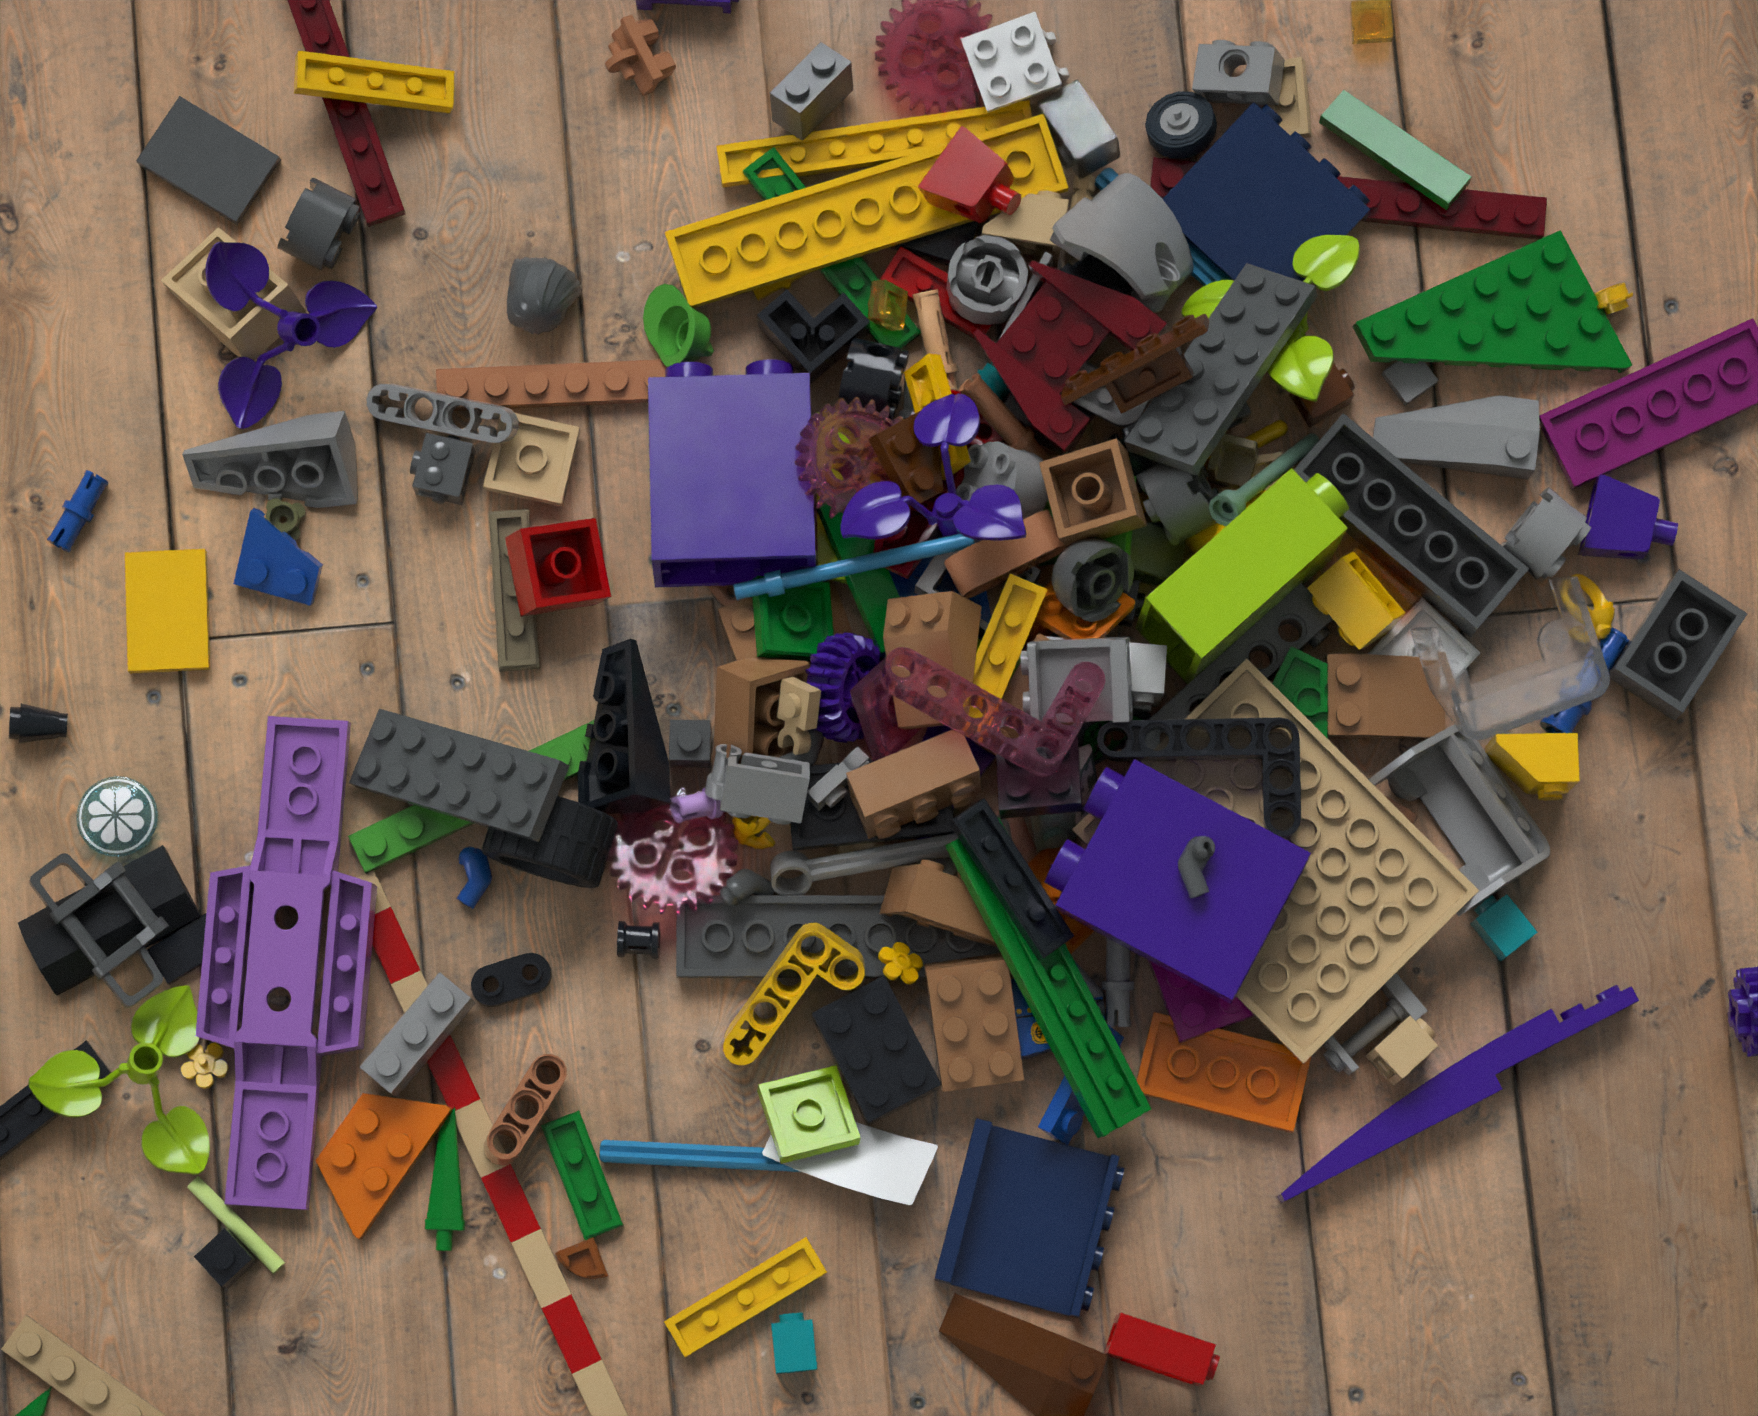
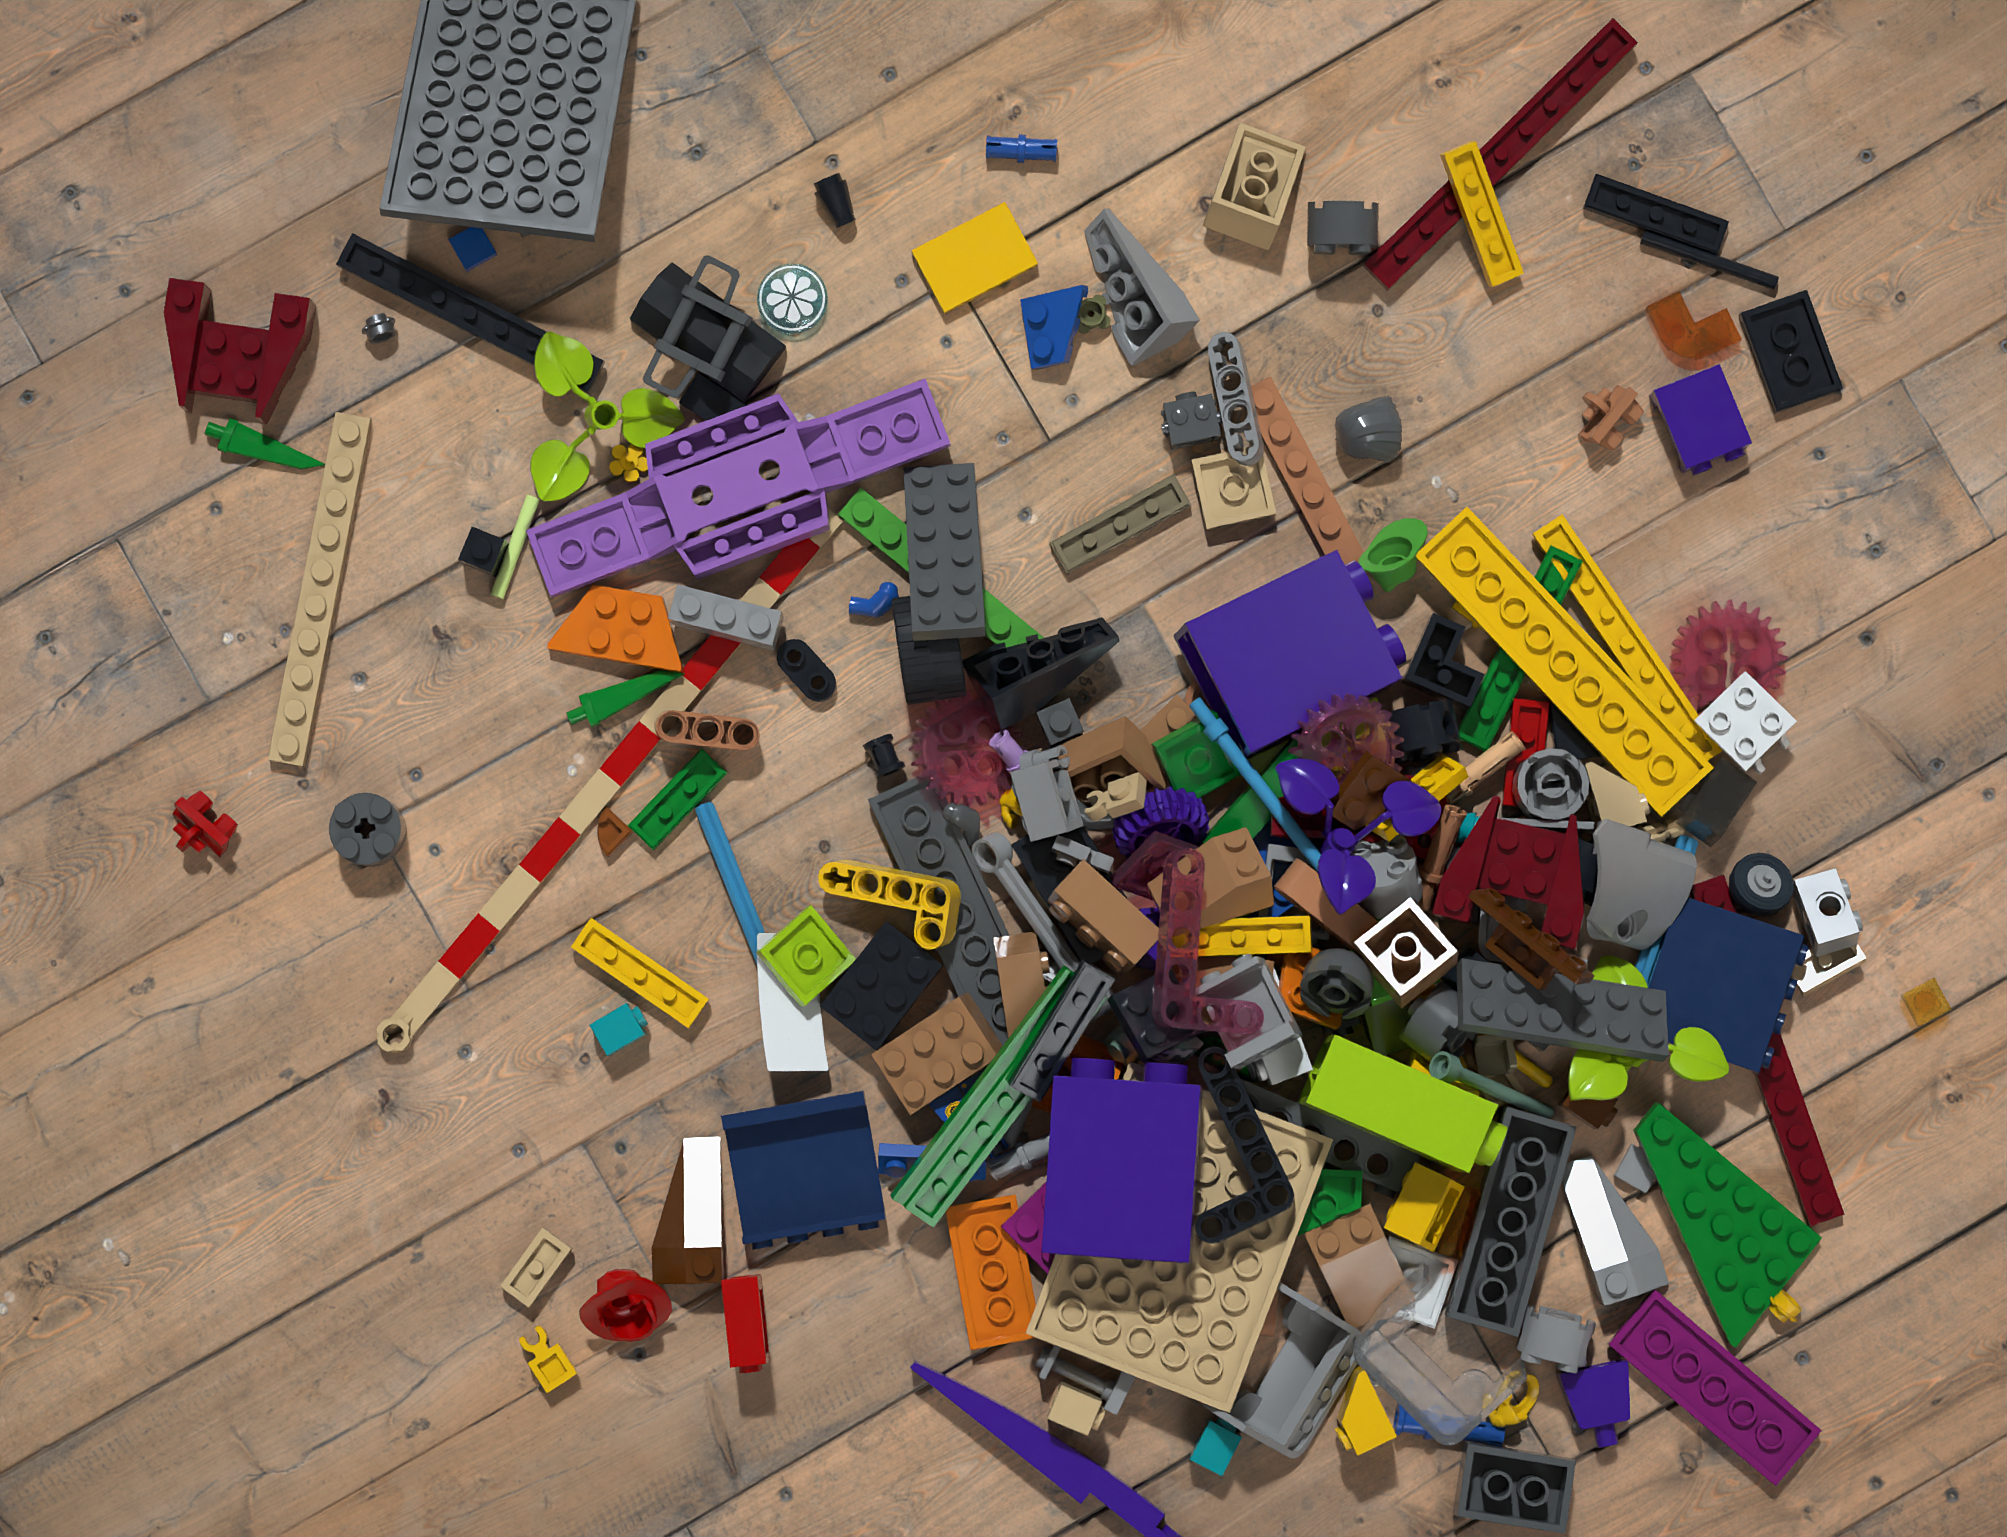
camera: 70 degrees right, 5 degrees up
(208, 160) = (1356, 112): dark grey tile -> none
(334, 318) = (1273, 275): dark purple plant -> none
(558, 567) = (1152, 550): red brick -> none
(811, 91) = (1643, 570): dark grey brick -> none
(887, 305) = (1493, 714): clear yellow plate -> none
(900, 963) = (959, 973): yellow plant -> none
(970, 180) = (1625, 733): red torso -> none
(1193, 862) = (1135, 1170): dark grey arm -> none
(1395, 149) = (1824, 1070): tile -> none

